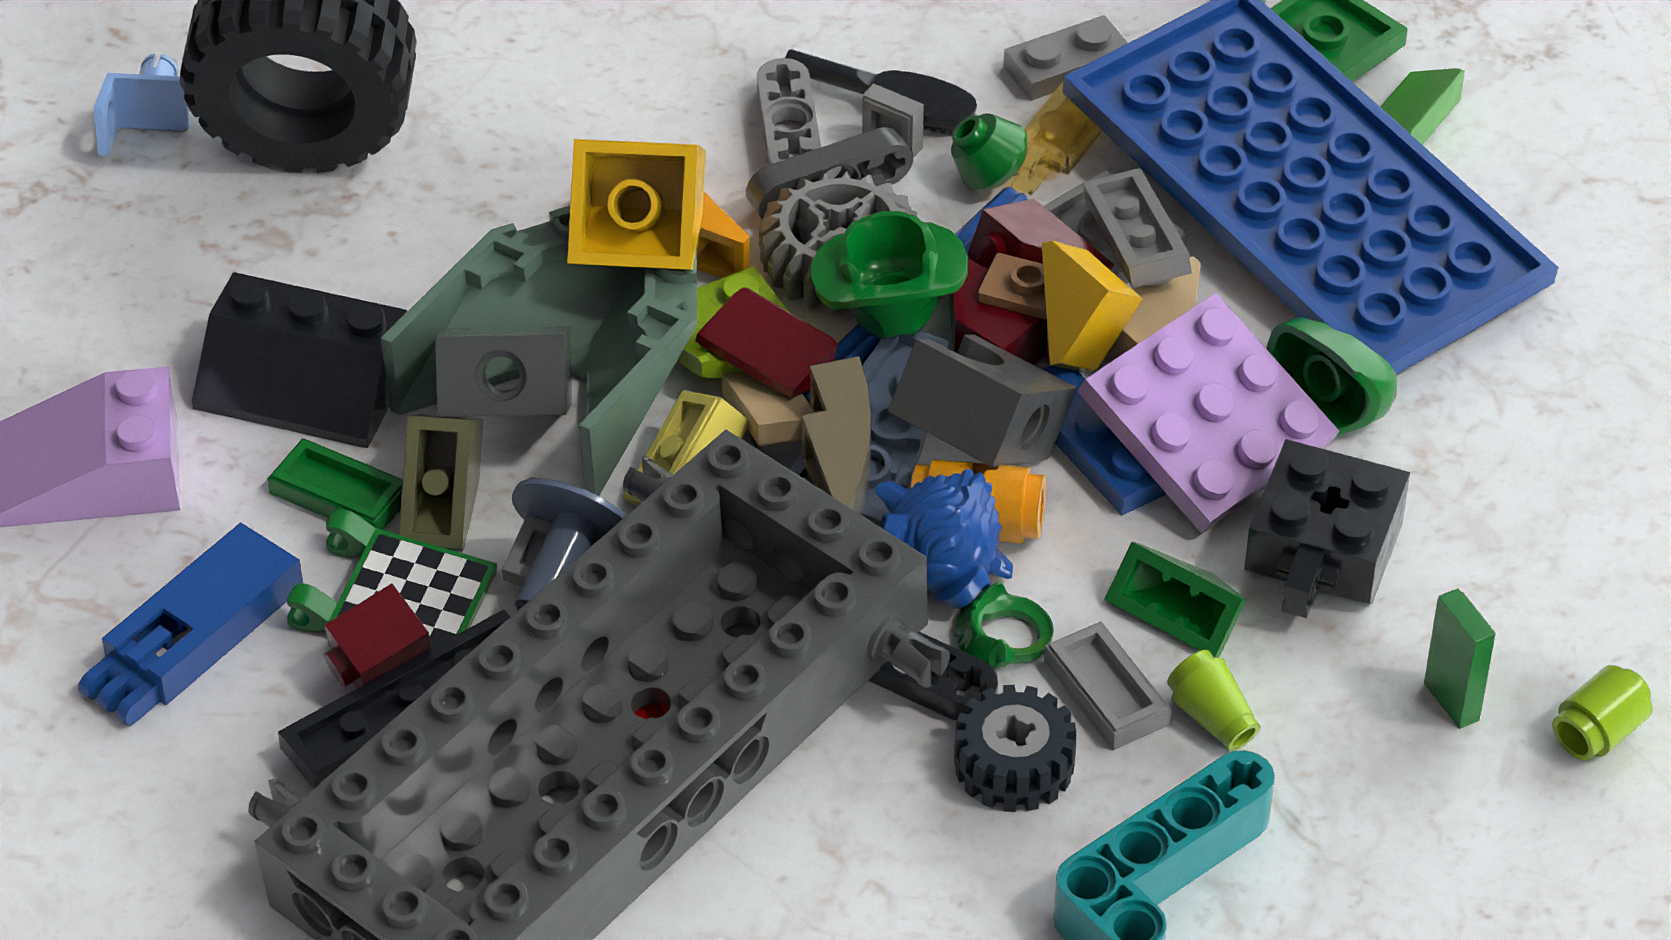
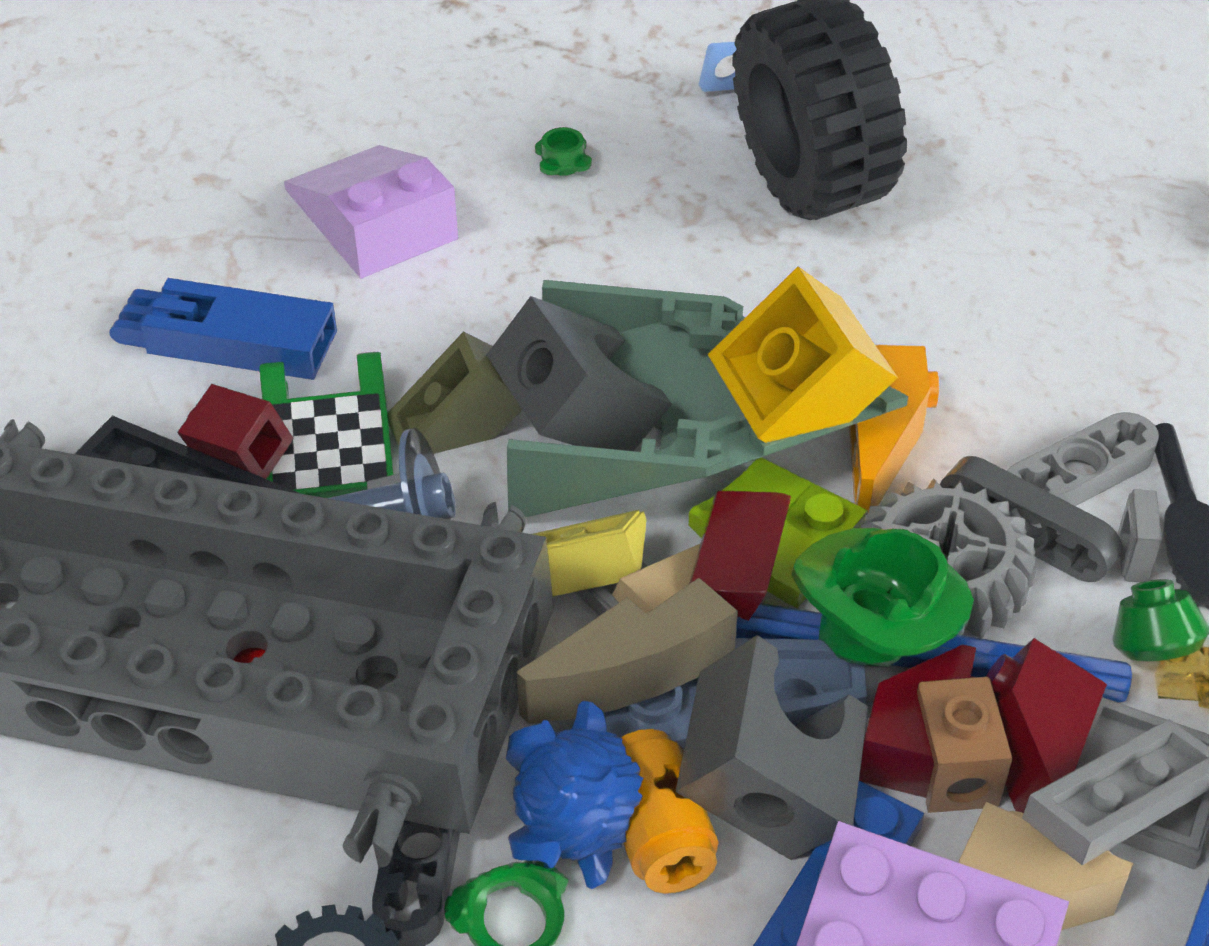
camera: 65 degrees right, 0 degrees up
(124, 290) = (562, 152): none -> green plate
(295, 360) = (533, 239): black slope -> none
(332, 481) = (423, 339): green tile -> none
(1083, 306) = (963, 778): yellow slope -> none

